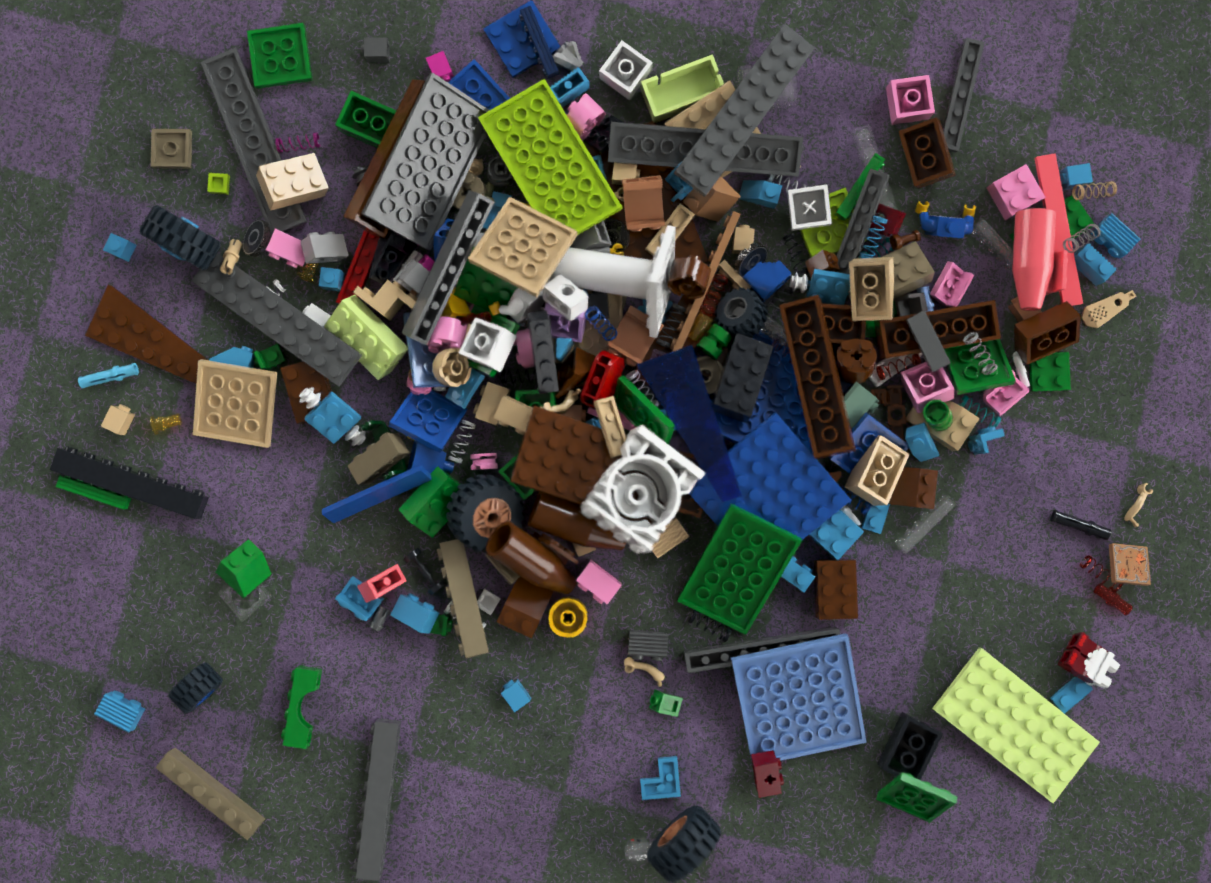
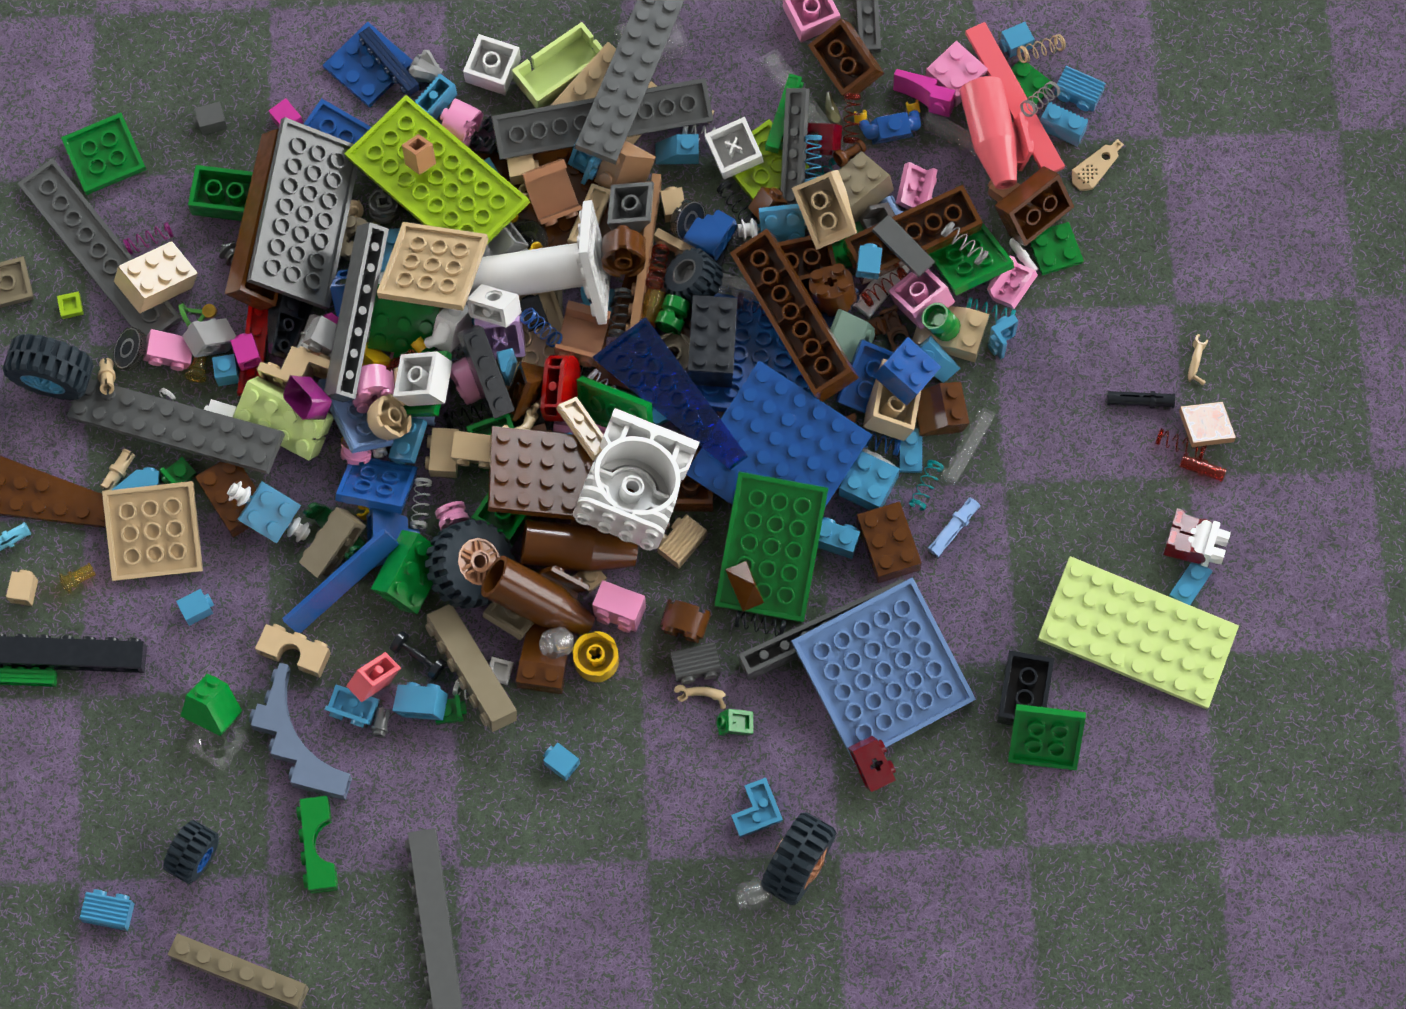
camera: 15 degrees left, 15 degrees down
(221, 340) = (117, 470): none -> tan pin
(254, 477) = (195, 606): none -> dark azure brick
(299, 617) = (274, 719): none -> sand blue arch
(332, 221) = (207, 311): none -> piece
(338, 546) = (276, 641): none -> tan arch
(350, 269) = (246, 351): none -> dark pink brick
(387, 331) = (297, 397): none -> magenta piece
(538, 600) = (556, 642): none -> clear head
(539, 139) = (418, 154): none -> nougat brick
(649, 609) = (684, 620): none -> reddish brown brick
(706, 236) = (630, 205): none -> dark grey slope
(706, 594) = (744, 586): none -> reddish brown slope
(891, 590) = (958, 521): none -> light blue pin
(895, 347) = (869, 261): none -> dark azure brick
(895, 535) = (929, 465): none -> teal piece
(897, 454) = (907, 371): none -> blue brick
(899, 195) = (831, 110): none -> olive bar
(922, 189) = (851, 96): none -> clear red piece
(986, 201) = (925, 89): none -> dark pink slope

